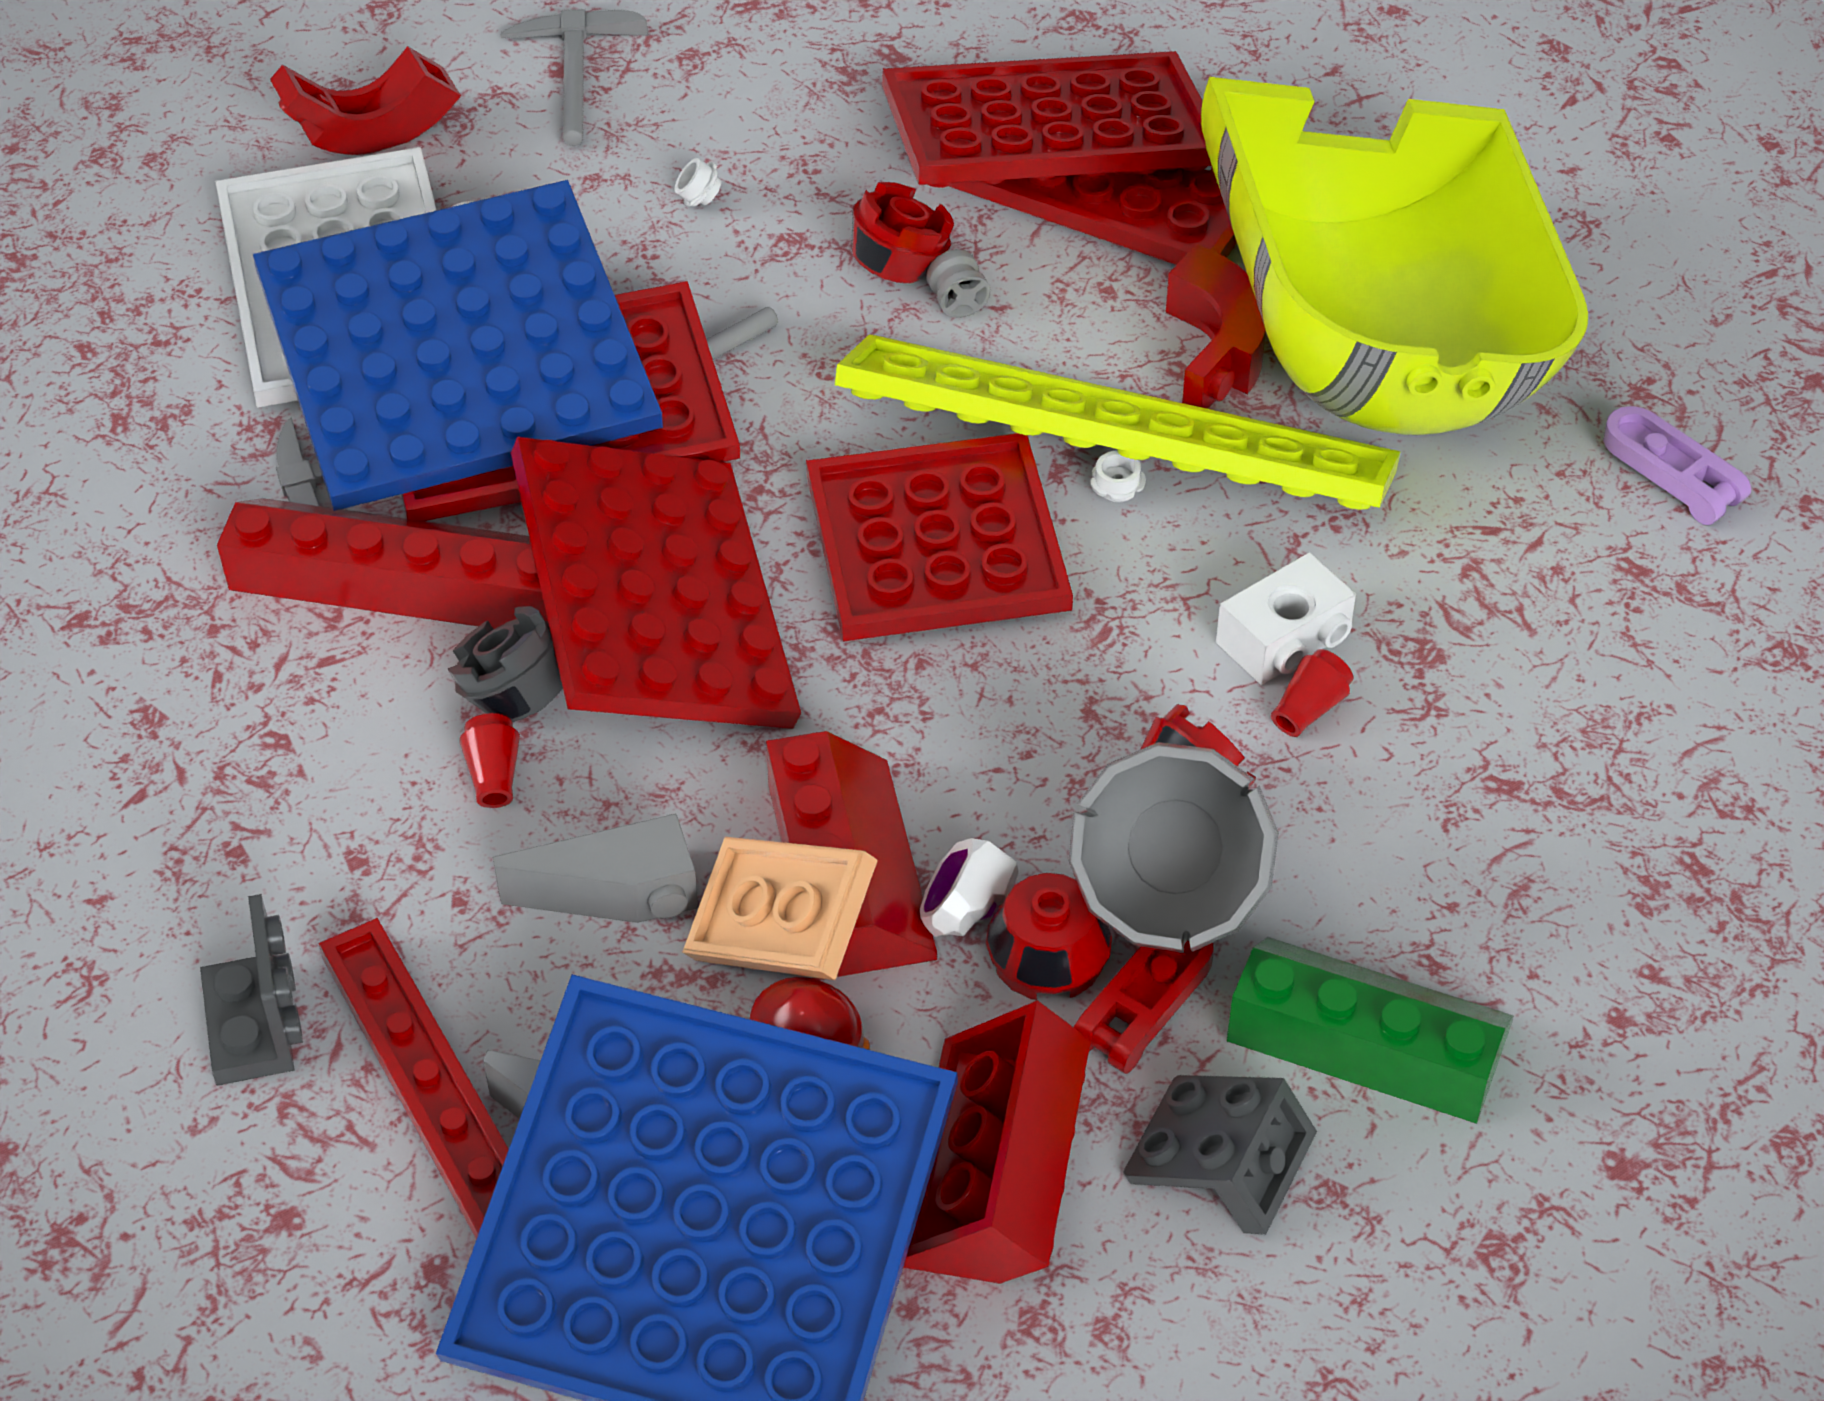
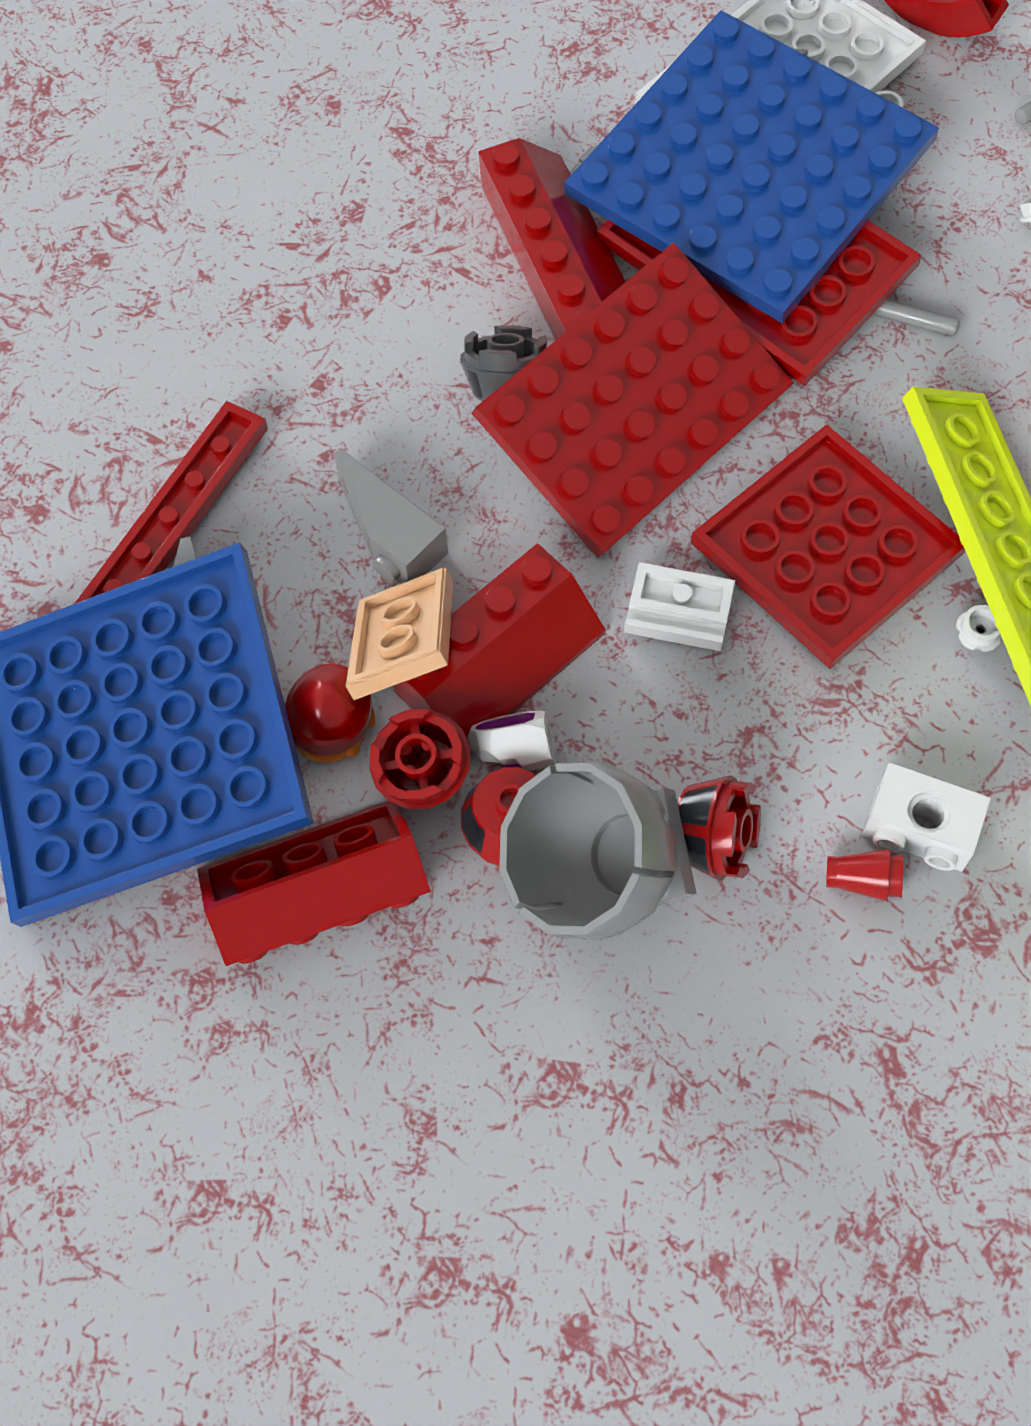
camera: 60 degrees right, 15 degrees up
(252, 1006) = (164, 394): dark grey bracket -> none
(491, 756) = (437, 401): red cone -> none
(913, 684) = (679, 606): none -> white plate
(939, 968) = (419, 759): none -> red cone
(1145, 997) = (495, 909): red plate -> none
(1226, 1137) = (404, 1032): dark grey bracket -> none
(1368, 1028) = (584, 1077): green slope -> none

